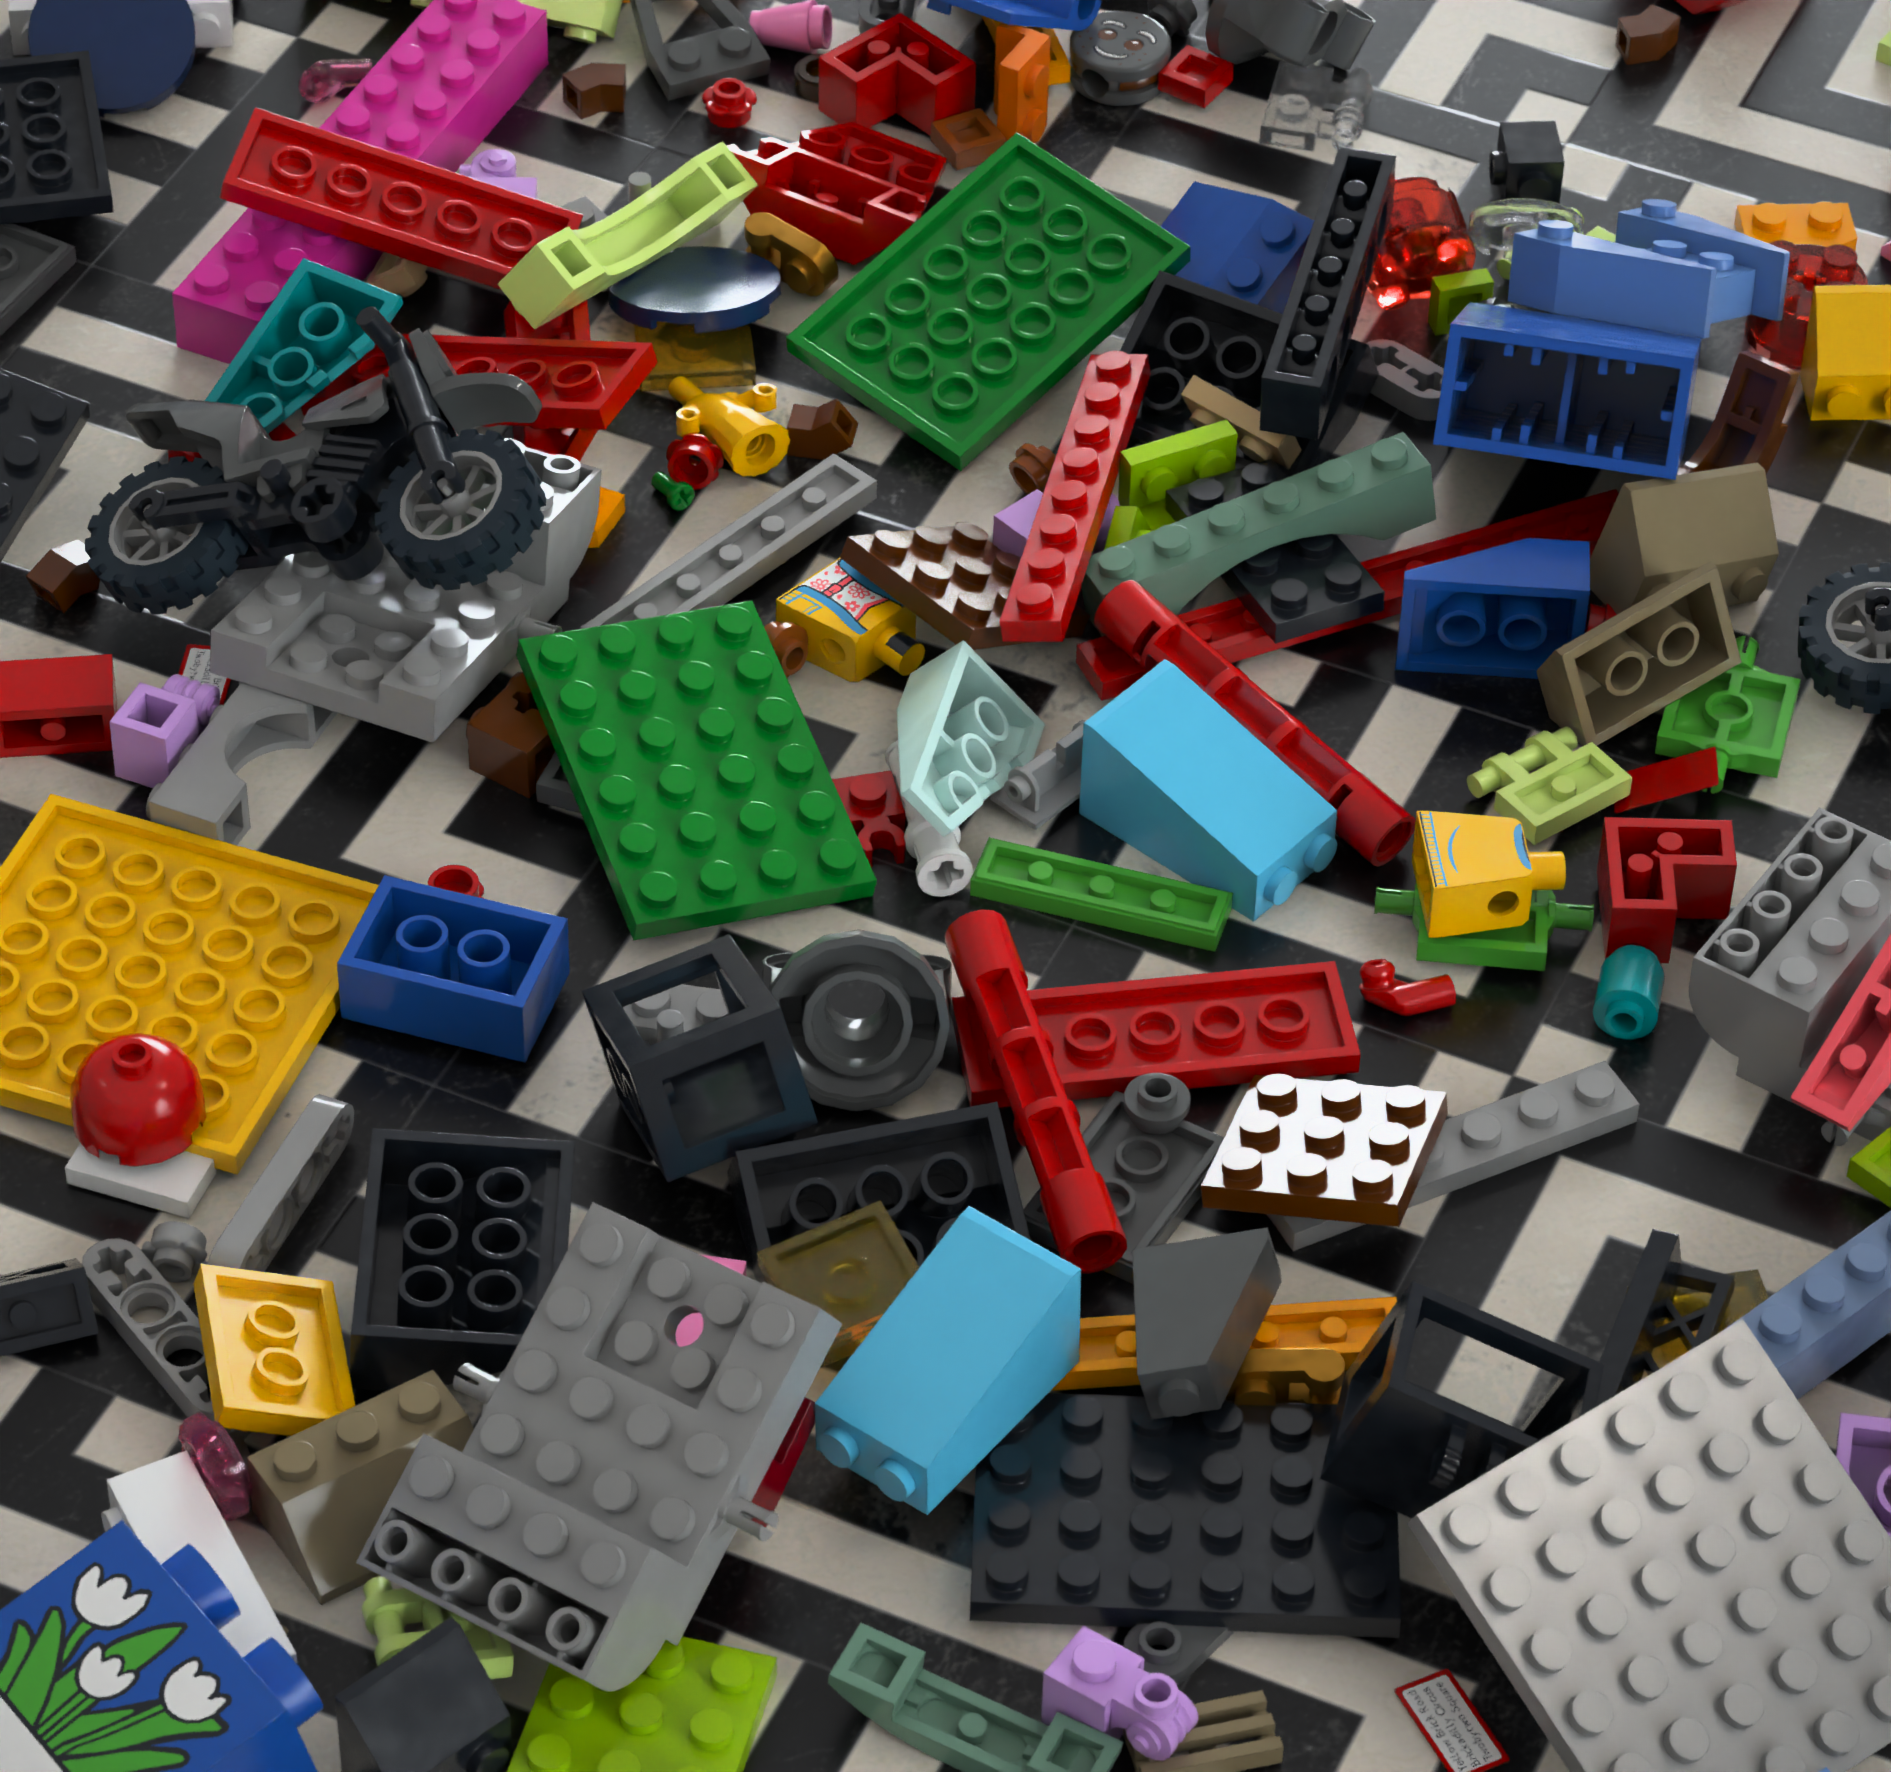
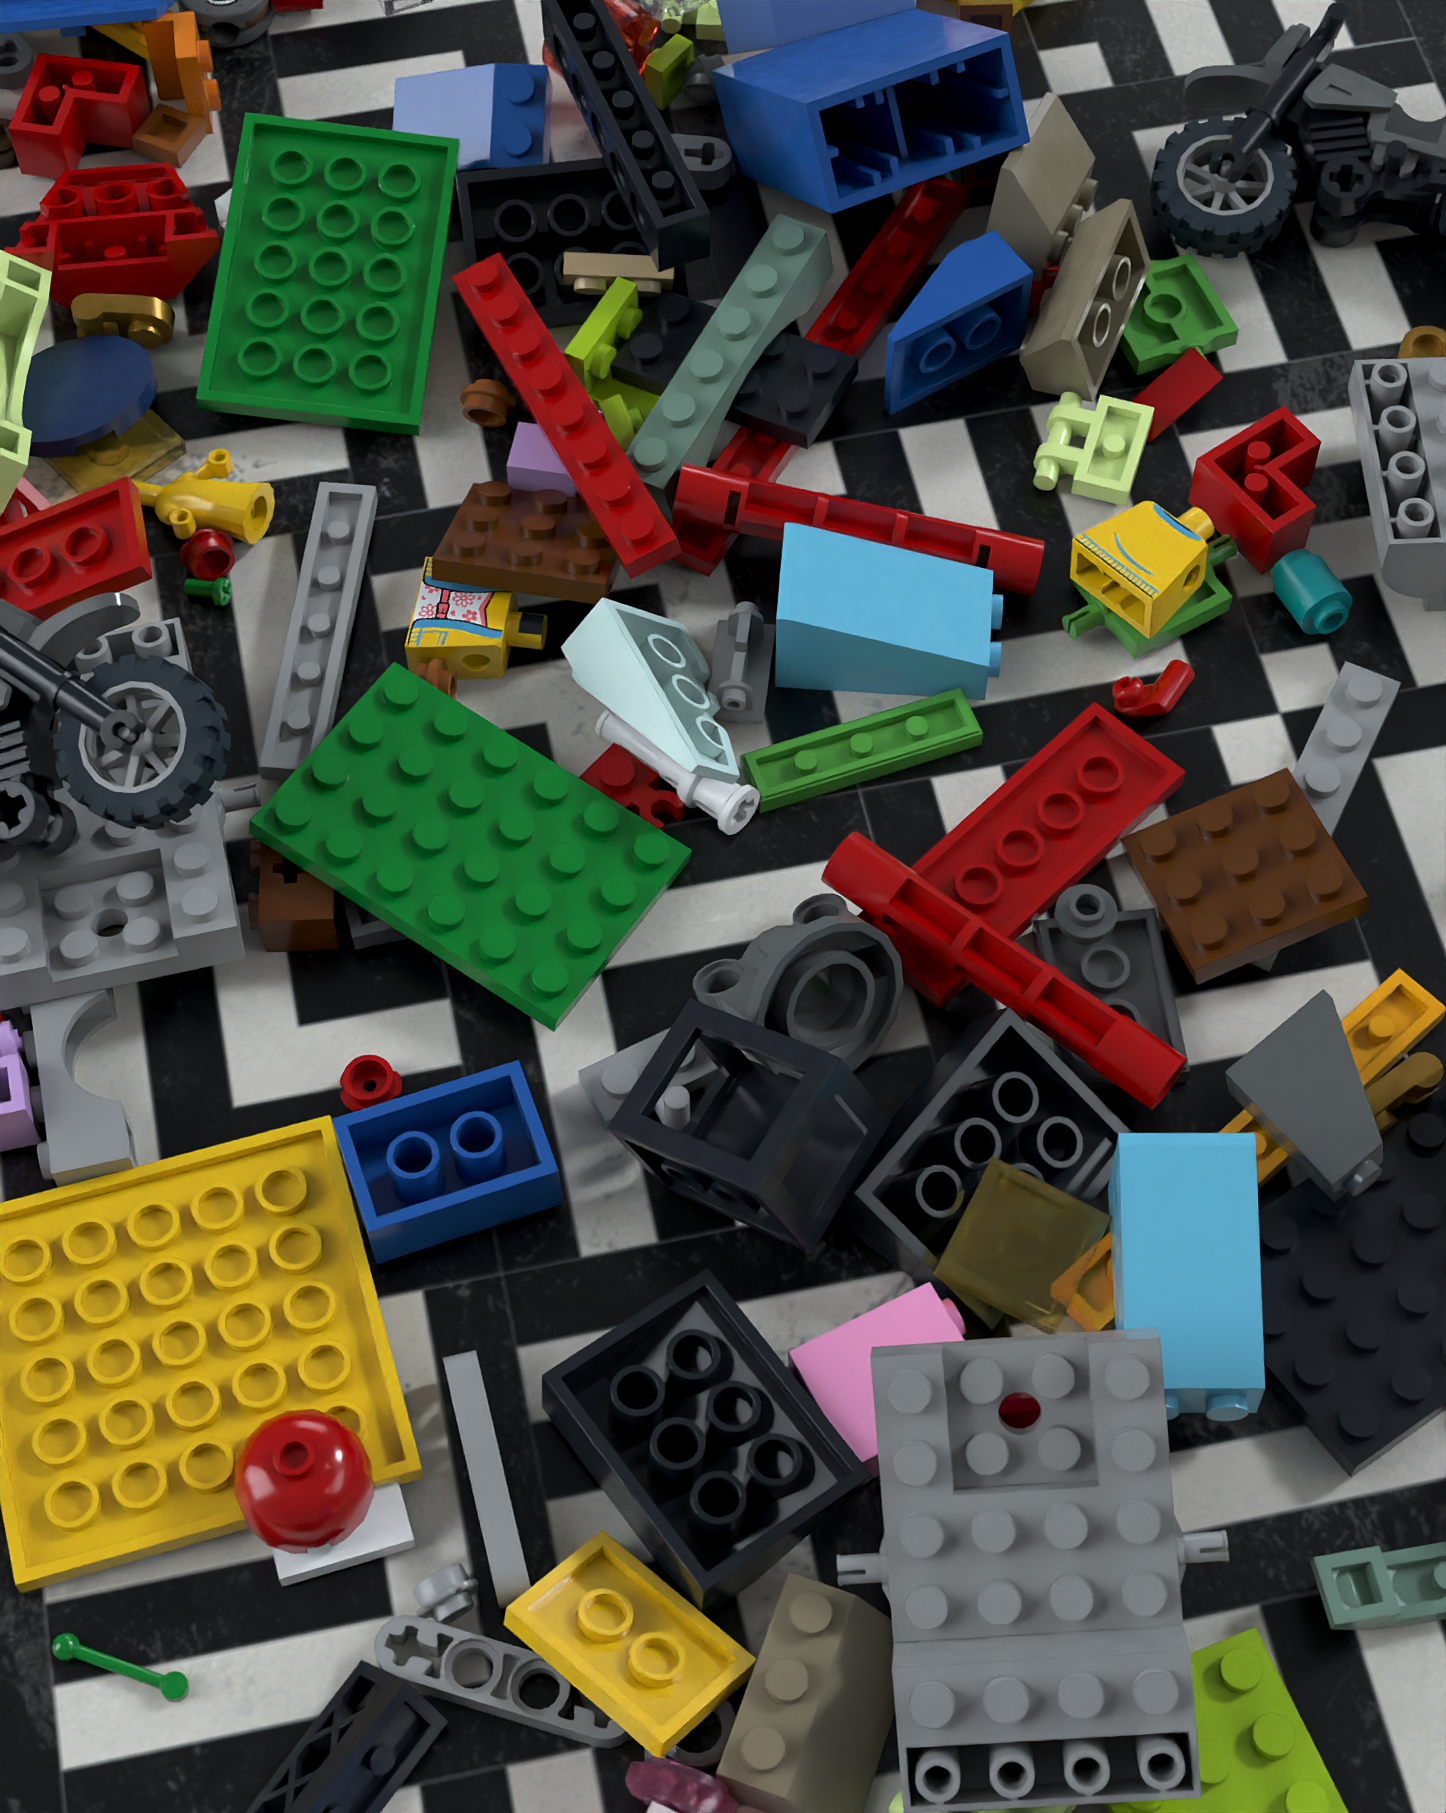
camera: 35 degrees left, 15 degrees up
(820, 430) = (285, 464): reddish brown piece -> none

